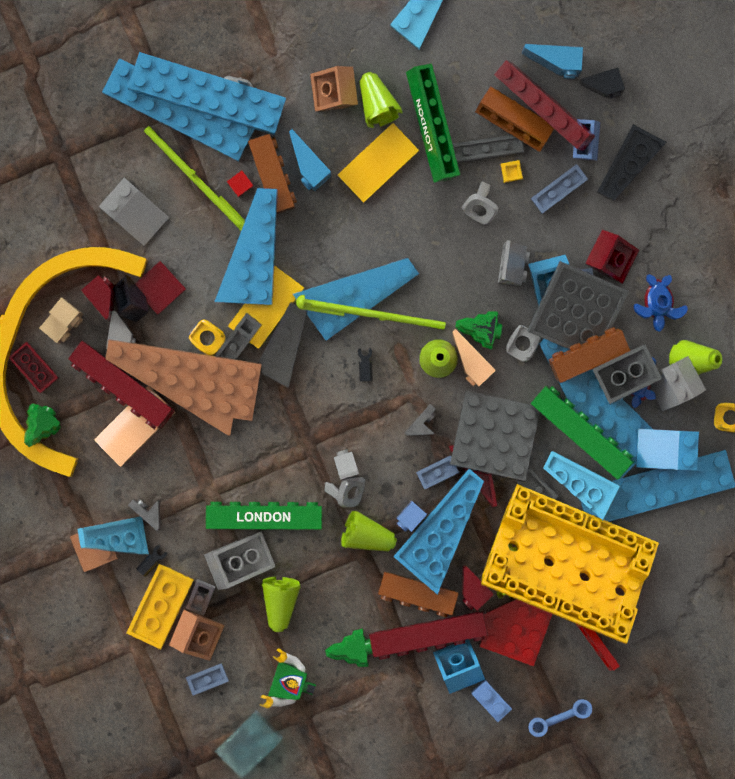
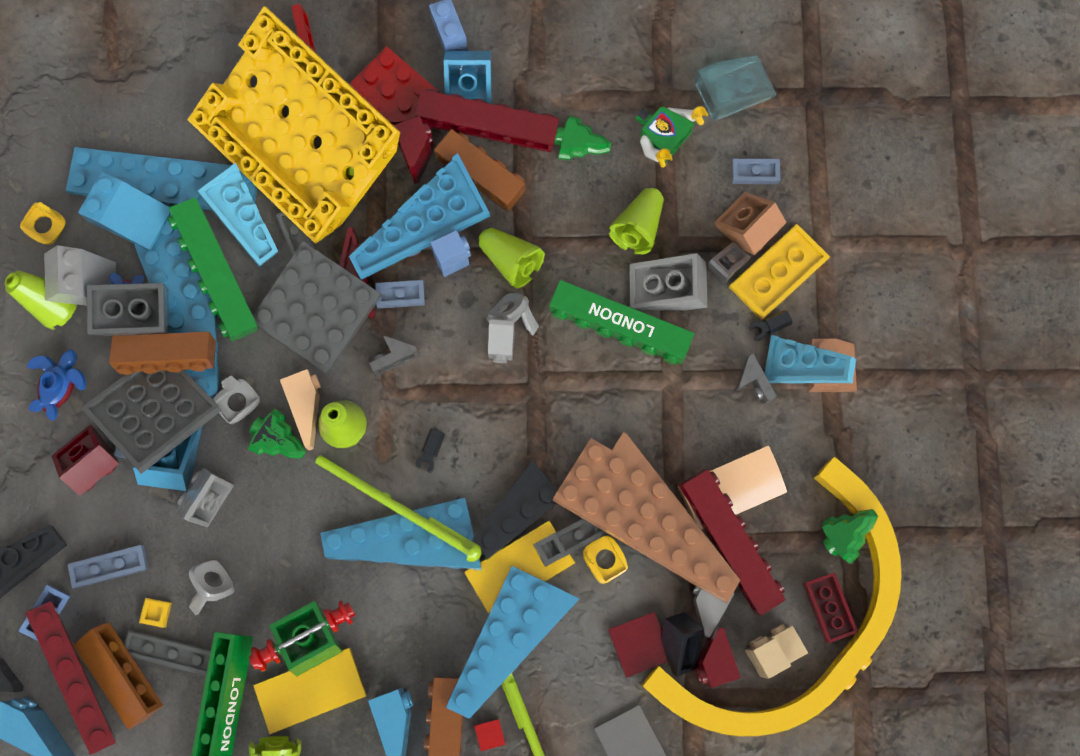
camera: 150 degrees left, 10 degrees down
(395, 196) = (304, 638): none -> green brick

